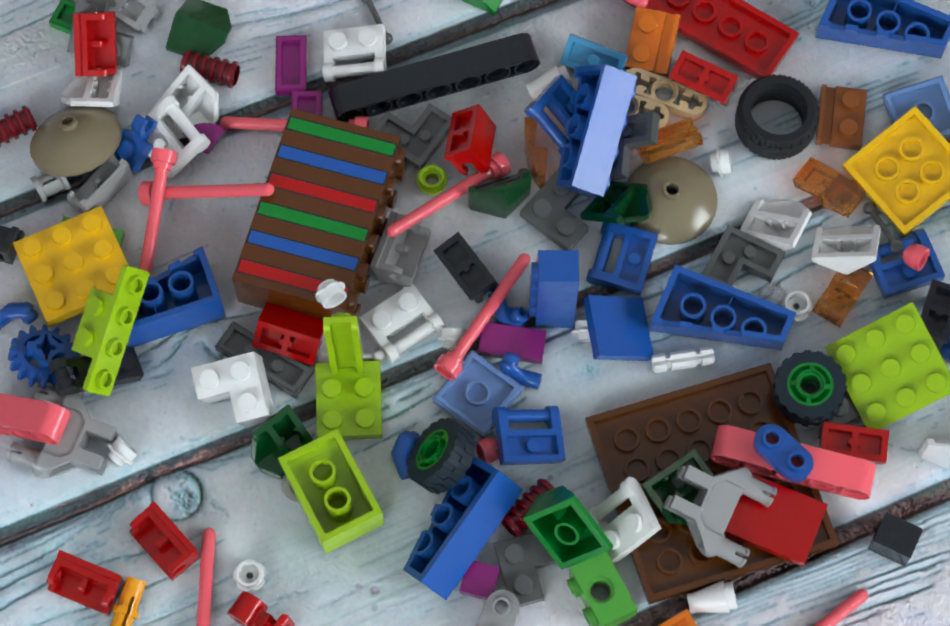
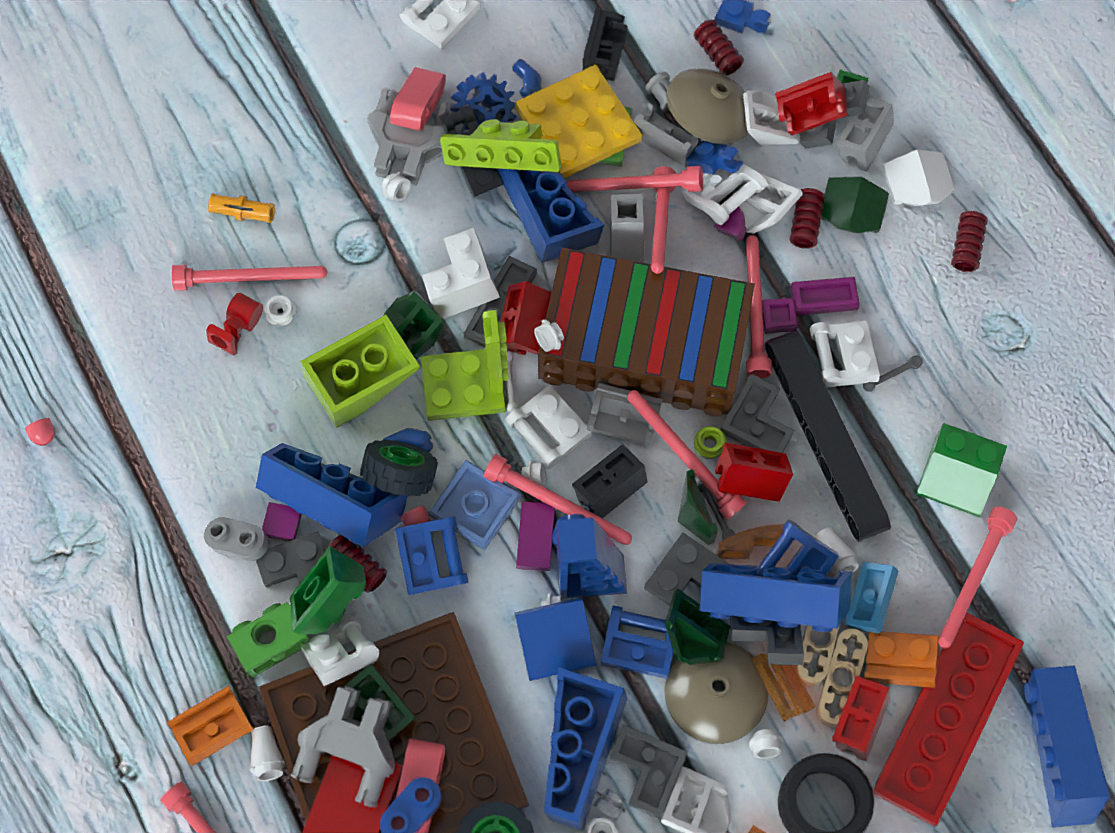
camera: 85 degrees right, 0 degrees up
(84, 583) = (269, 170): red hinge -> none
(163, 541) = (311, 234): red hinge -> none
(206, 228) = (627, 226): none -> light grey slope
(522, 376) = (498, 549): blue arm -> none
(682, 359) = (529, 712): white axle -> none

